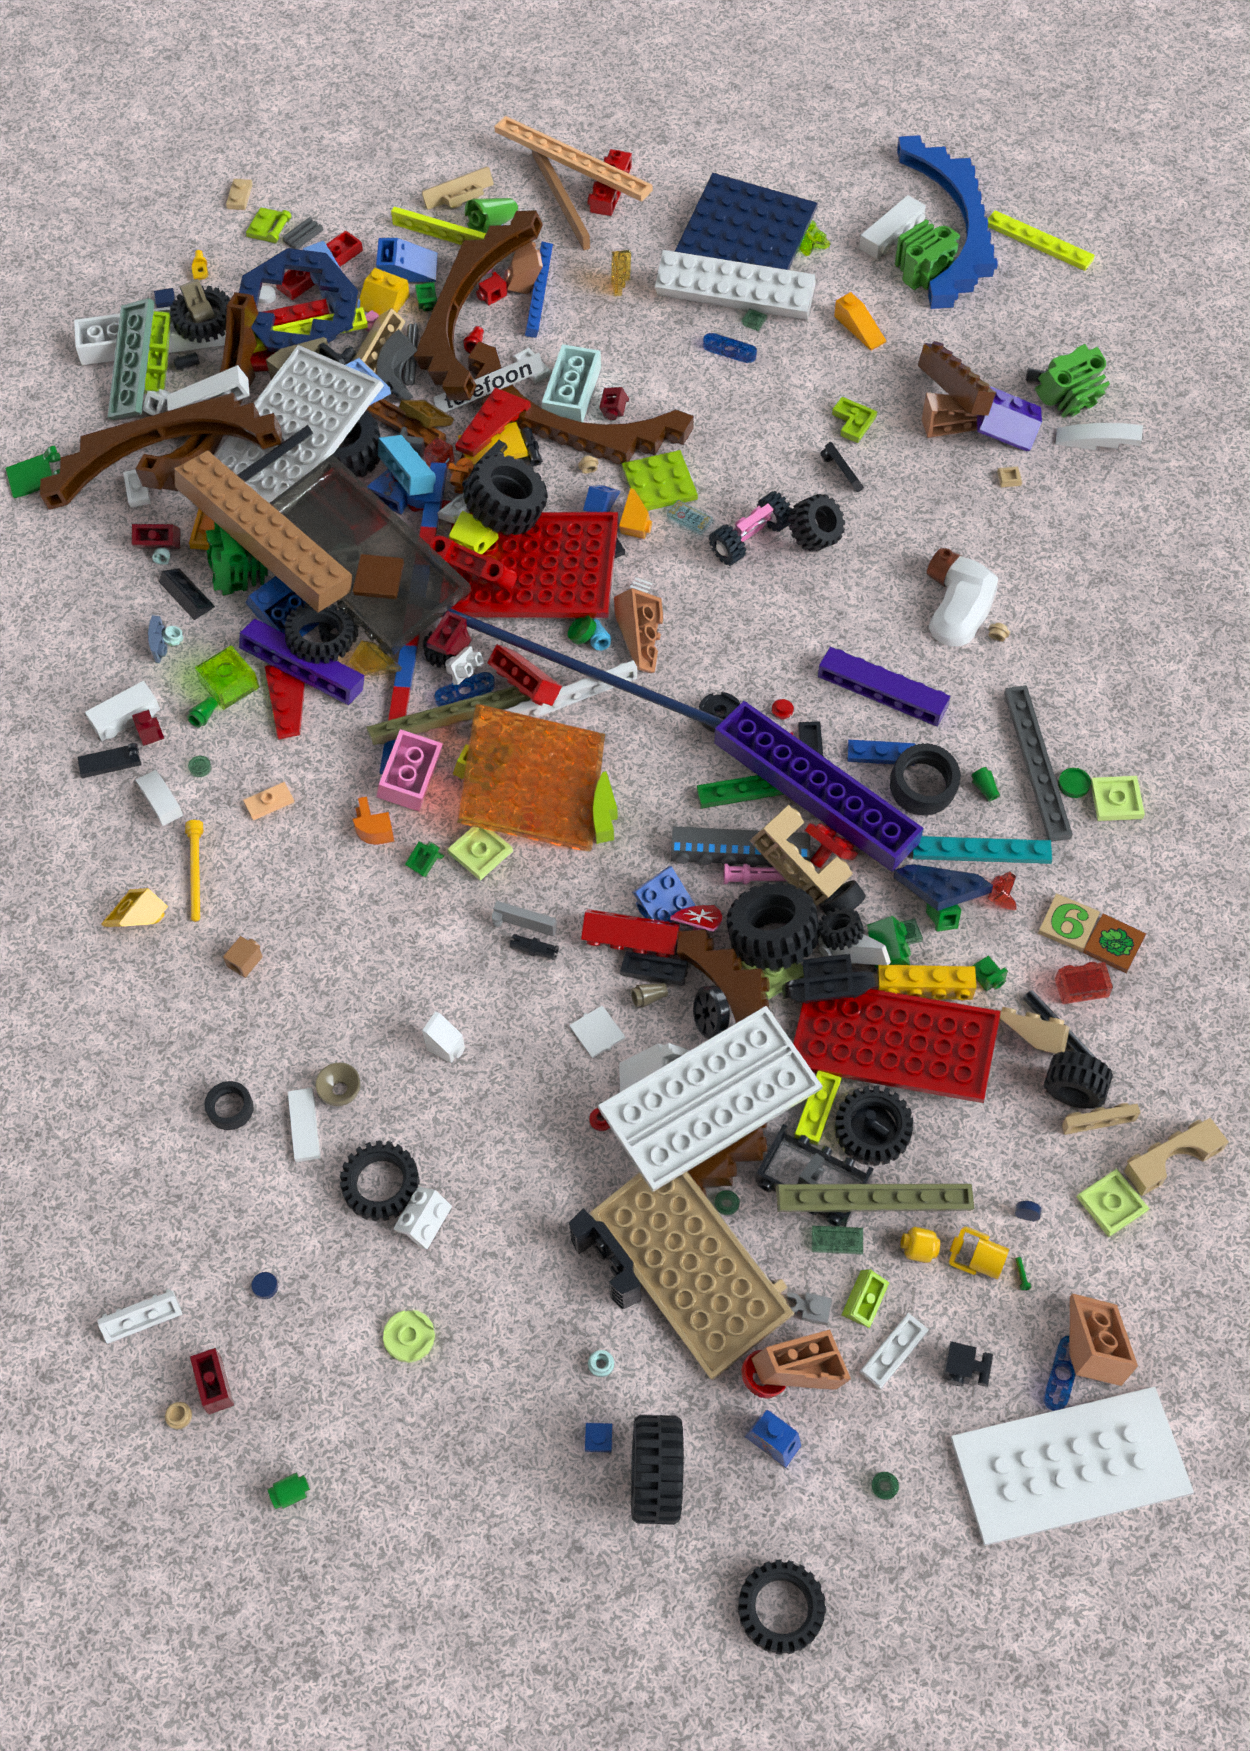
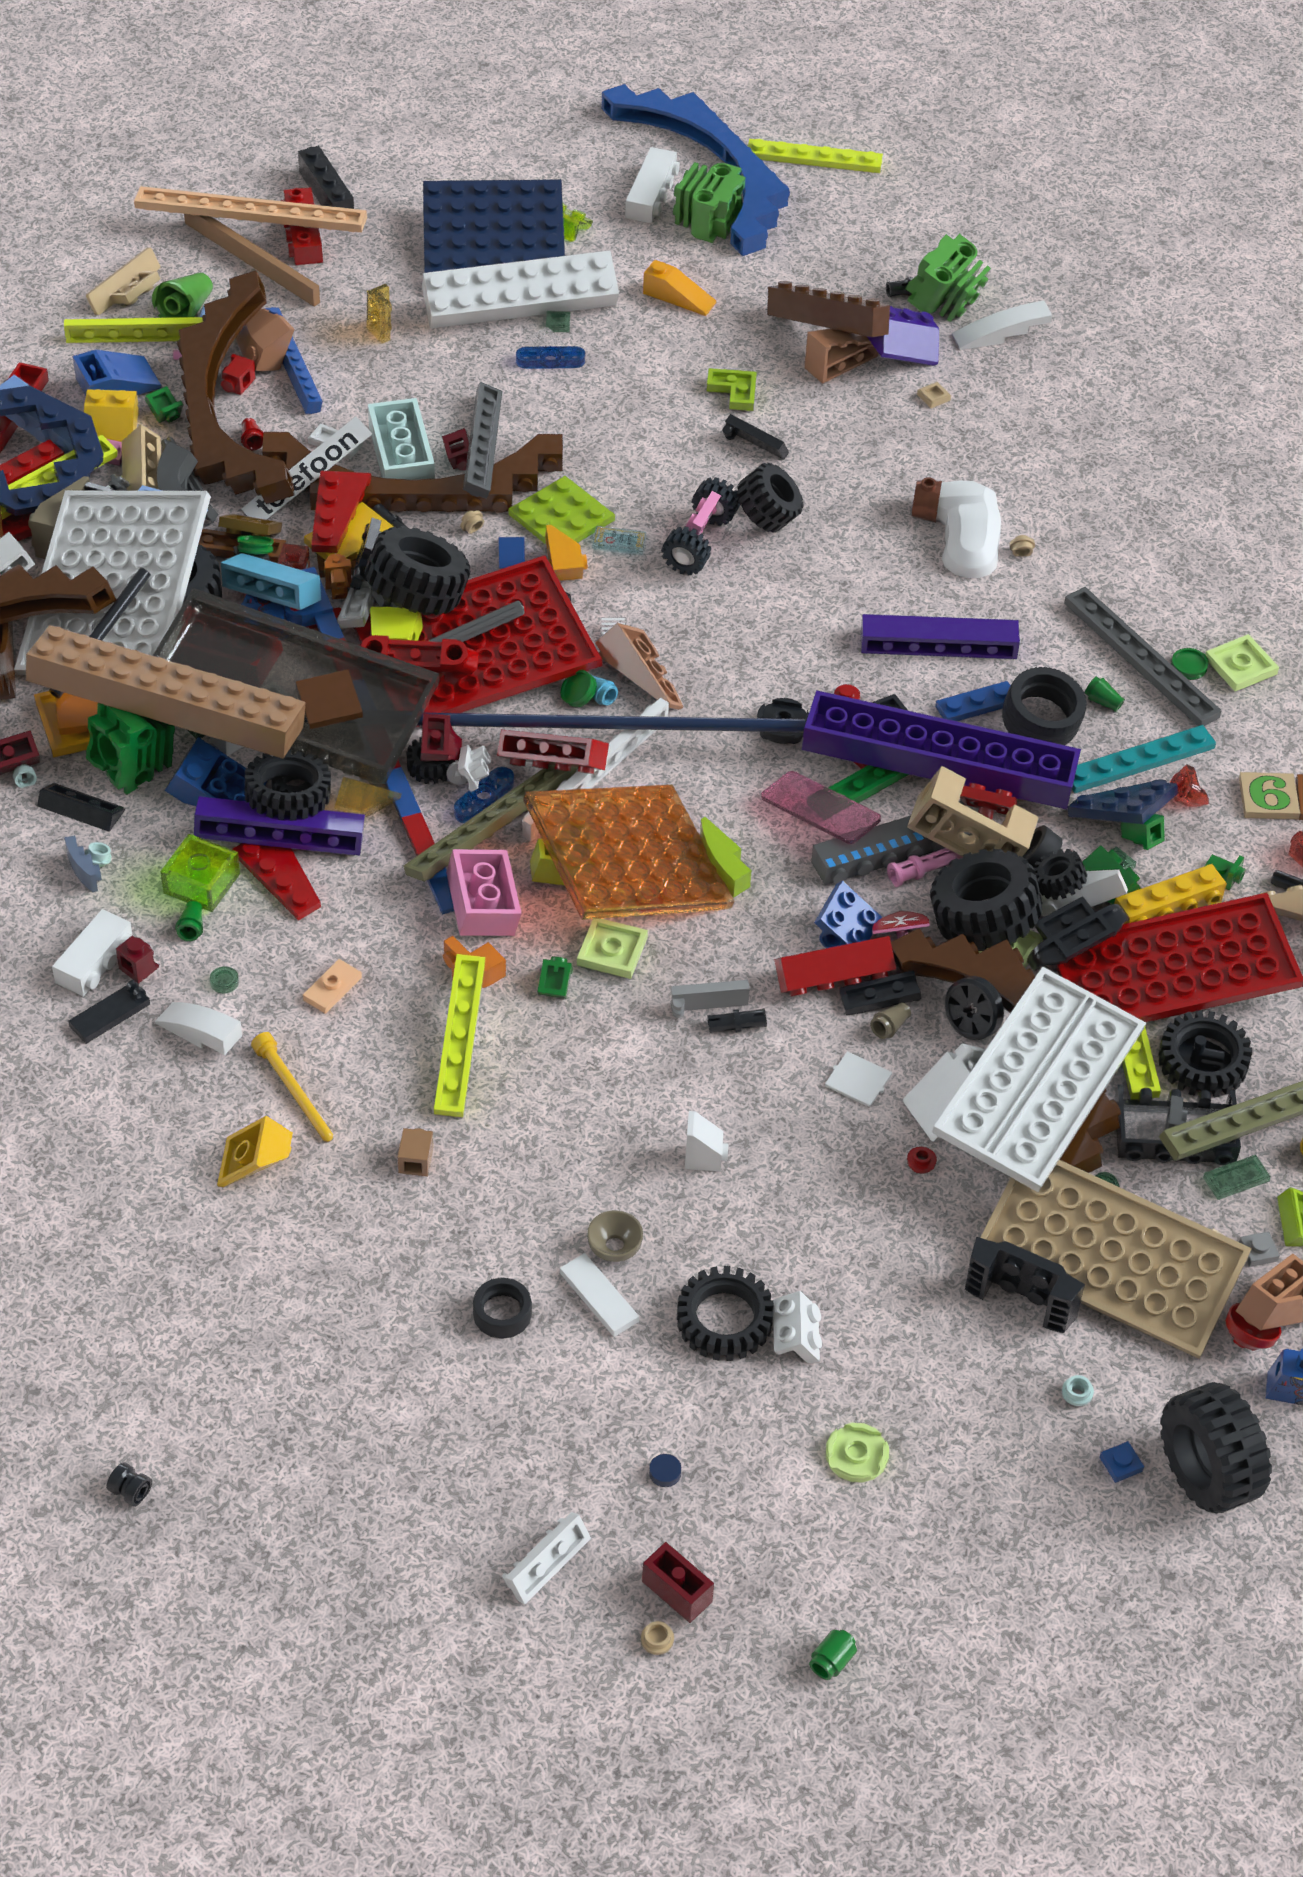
camera: 30 degrees left, 10 degrees down
(324, 878) = (459, 1036): none -> neon yellow plate
(345, 351) = (118, 483): none -> dark grey axle
(415, 431) = (255, 544): none -> green piece
(533, 553) = (483, 623): none -> dark grey axle
(629, 401) = (482, 441): none -> dark grey plate
(647, 151) = (323, 179): none -> black brick
(700, 797) = (821, 807): none -> clear pink piece

